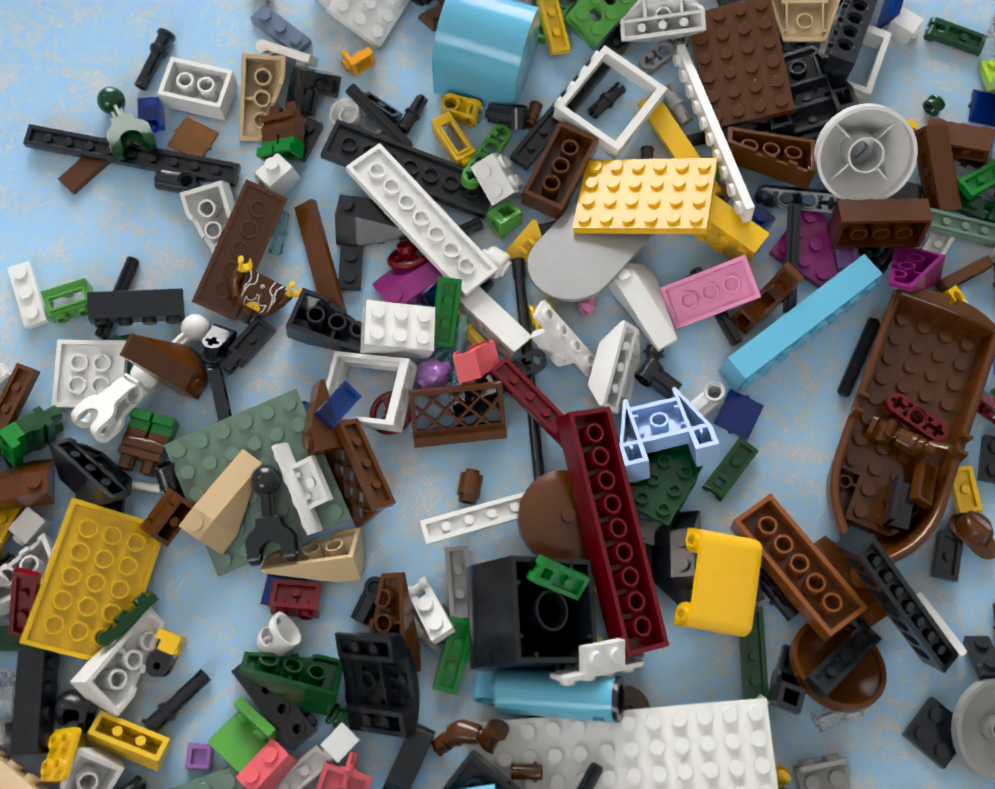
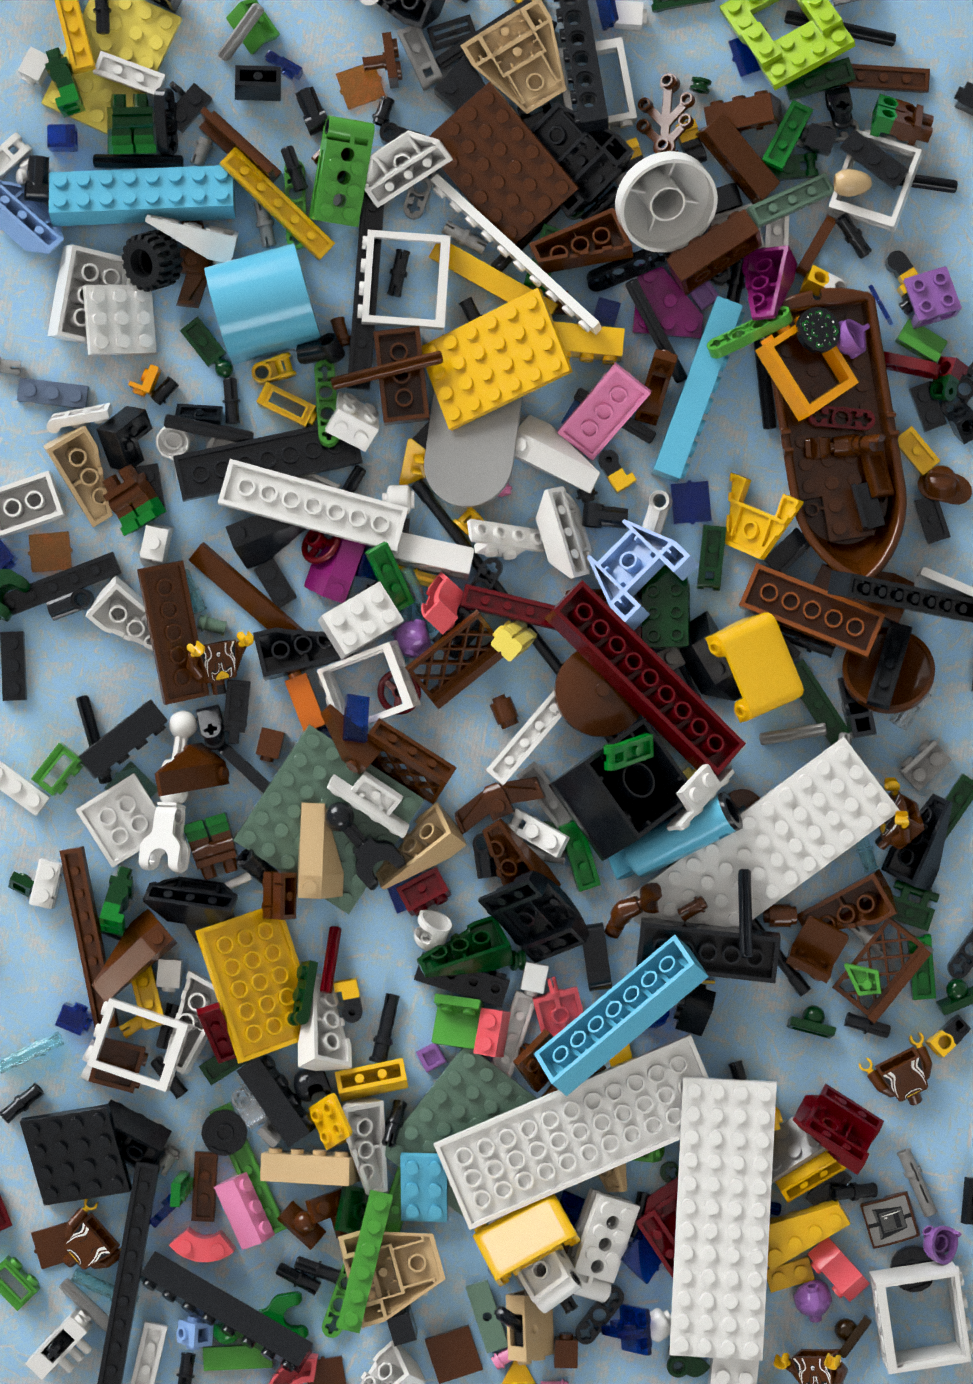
camera: 30 degrees left, 15 degrees up
(99, 203) = (13, 666): none -> black plate
(172, 606) = (330, 960): none -> dark red axle
(254, 389) = (270, 744): none -> reddish brown brick
(278, 269) = (211, 624): none -> sand green pin
(308, 369) = (304, 700): none -> orange brick
(365, 76) = (164, 391): none -> black pin
(413, 559) = (497, 801): none -> reddish brown plate
(421, 65) = (207, 347): none -> dark green plate
(504, 218) = (375, 449): bright green brick -> none
(516, 427) = (513, 639): none -> light yellow brick
(551, 152) = (386, 370): none -> reddish brown axle
(688, 349) = (613, 471): none -> leg
(715, 668) = (793, 734): none -> light grey axle
(784, 465) = (754, 529): none -> yellow wing
(804, 504) = (787, 551): none -> black panel
(878, 294) = (748, 333): none -> bright green beam
(889, 351) = (787, 384): none -> light orange window
(908, 91) = (668, 116): none -> plant
(941, 326) = (818, 330): none -> black tile
(960, 354) = (852, 338): none -> medium lavender helmet

